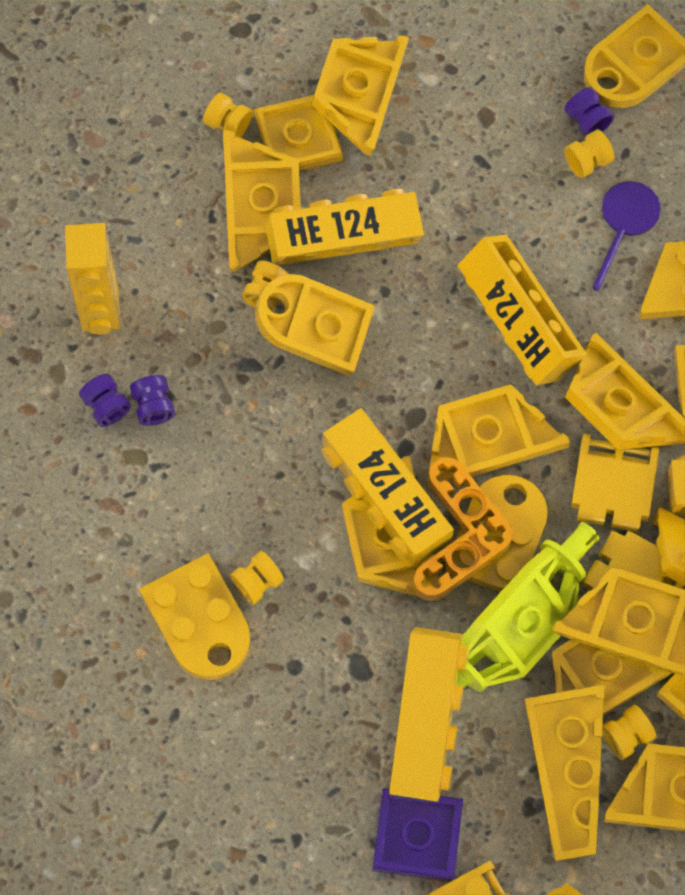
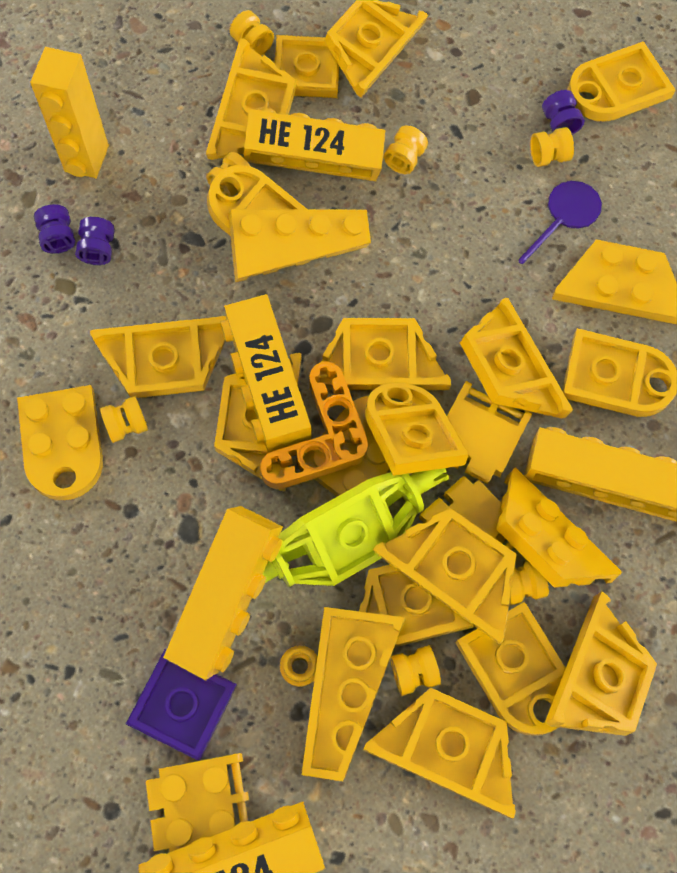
camera: 15 degrees right, 0 degrees up
(269, 500) = (163, 355): none -> yellow wing
(351, 339) = (288, 237): none -> yellow wing
(438, 203) = (404, 152): none -> yellow wheel
(520, 751) = (298, 653): none -> yellow plate
(521, 309) = (446, 257): yellow brick -> none
(551, 501) = (412, 432): none -> yellow plate

